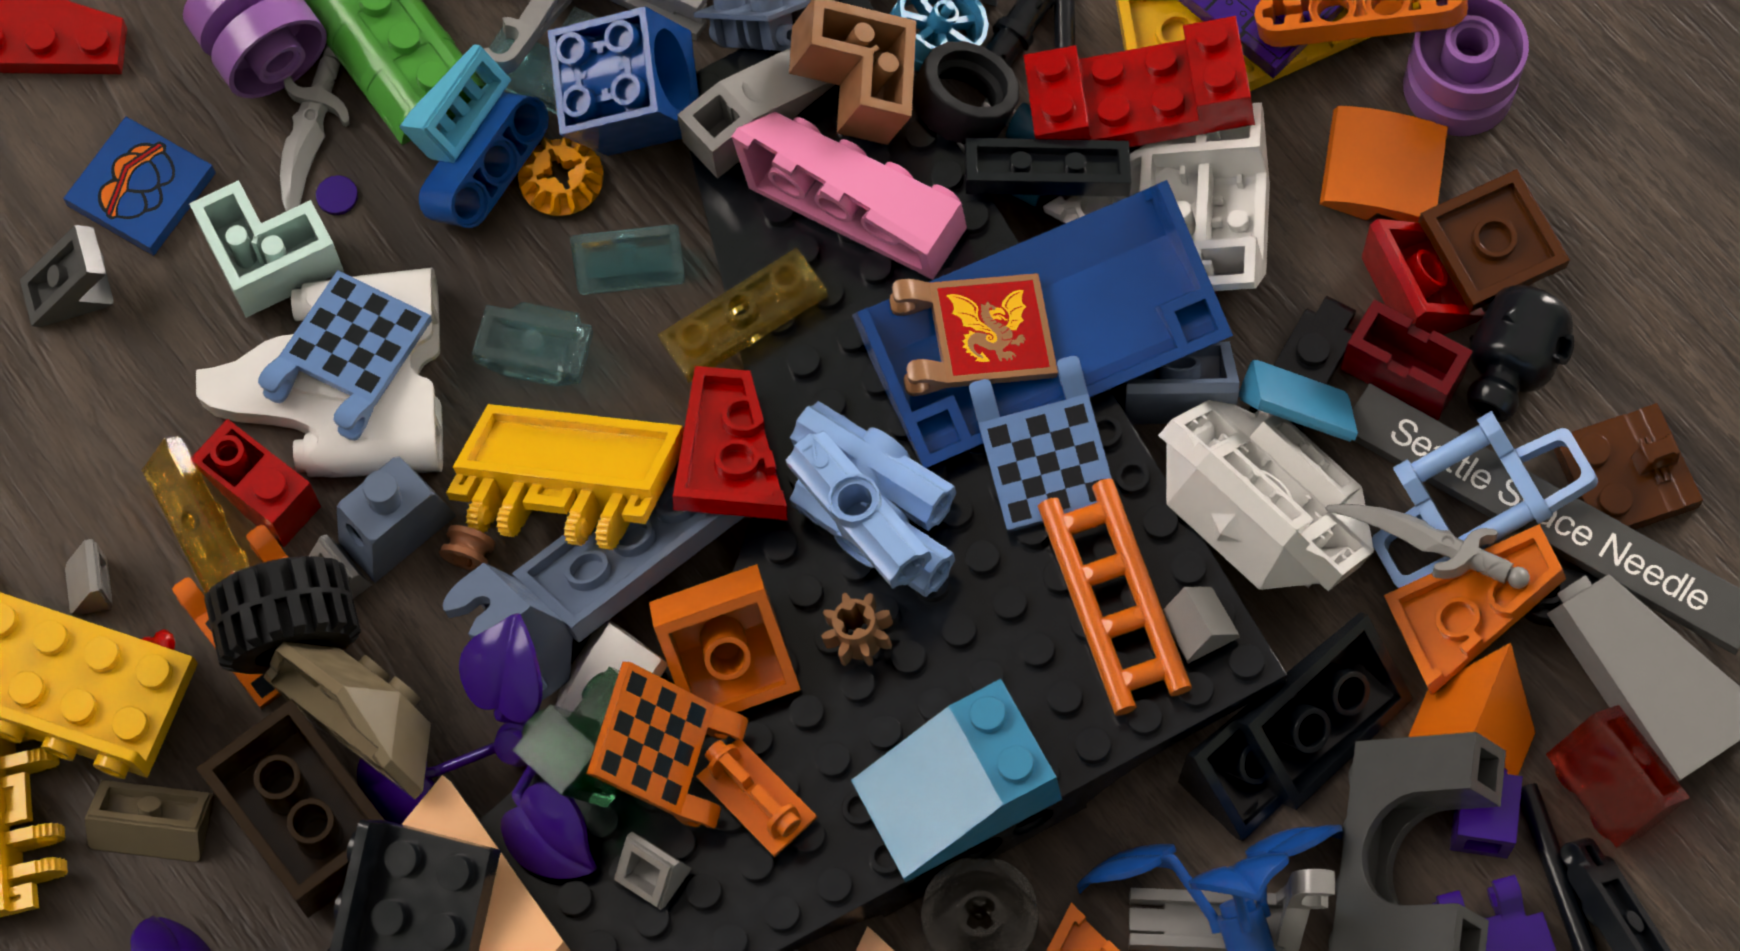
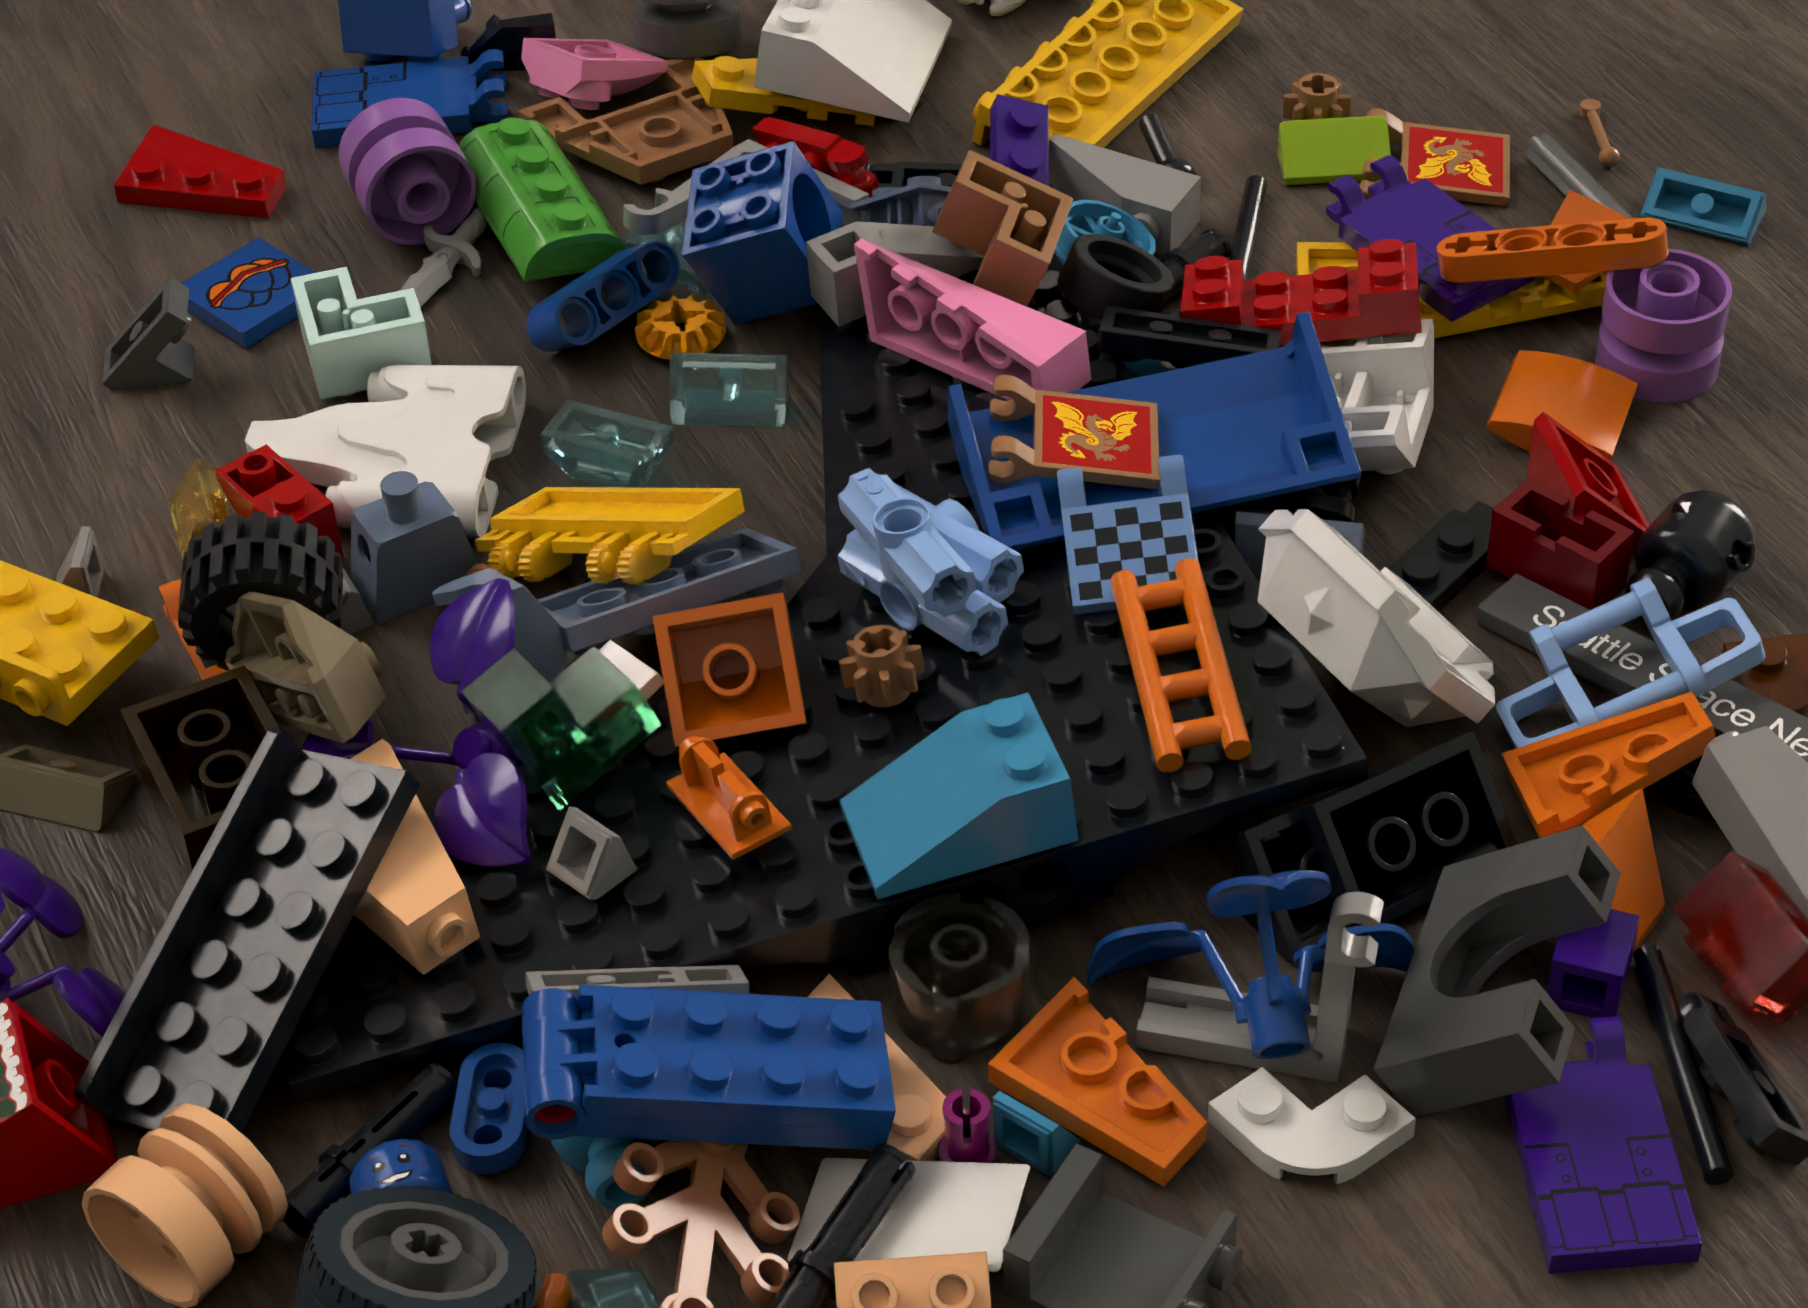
camera: 10 degrees right, 25 degrees down
(336, 195) = (448, 323): dark purple piece -> none
(351, 342) = (410, 405): medium blue flag -> none
(431, 110) = (555, 254): medium azure slope -> none
(655, 741) = (627, 715): orange flag -> none
(725, 450) = (778, 512): red wing -> none
(771, 299) = (833, 426): clear yellow tile -> none
(1199, 622) = (1271, 691): light grey slope -> none
(1299, 400) = (1428, 566): dark azure slope -> none
(1463, 554) = (1579, 700): light grey piece -> none
(1493, 239) = (1672, 455): reddish brown hinge -> none

